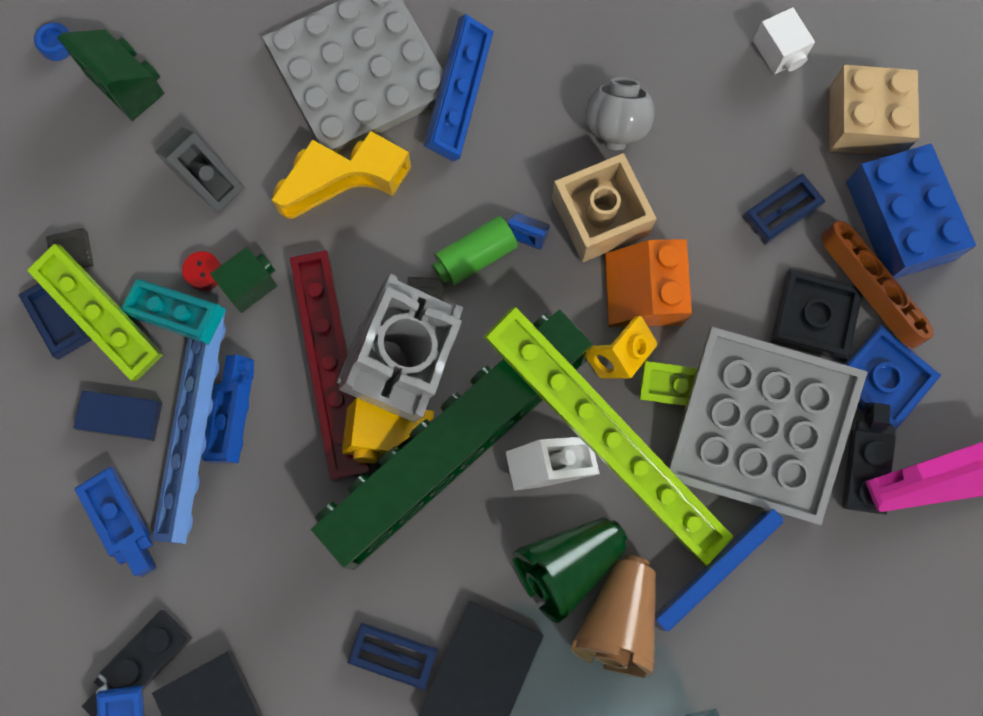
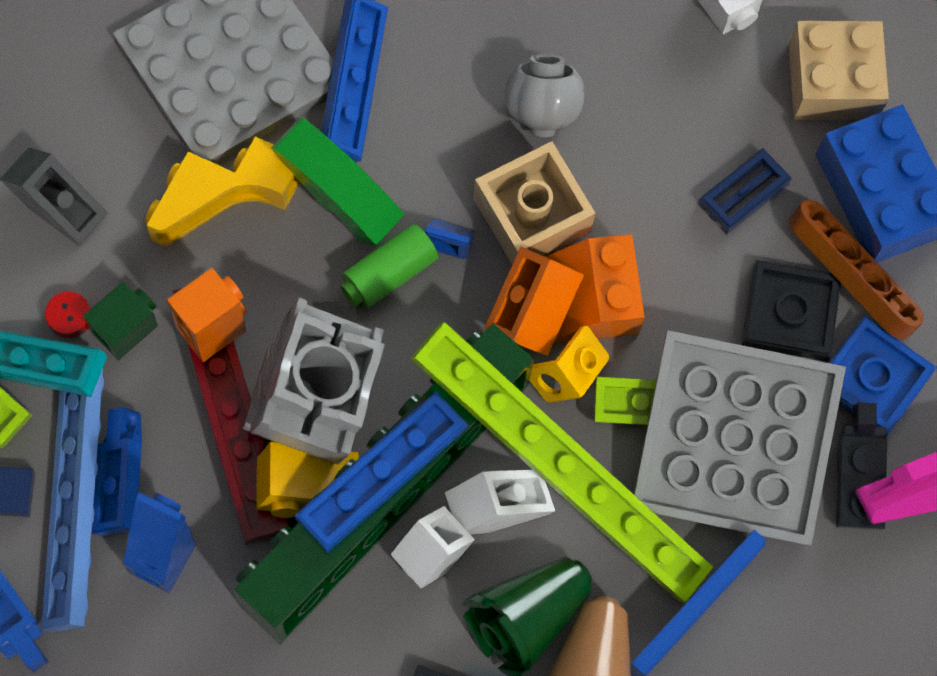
camera: 10 degrees left, 5 degrees down
(253, 477) = (158, 541): none -> blue slope
(314, 279) = (208, 313): none -> orange brick
(436, 174) = (337, 182): none -> green slope
(449, 435) = (381, 472): none -> blue tile
(490, 499) = (432, 547): none -> white brick
(597, 290) = (534, 300): none -> orange brick

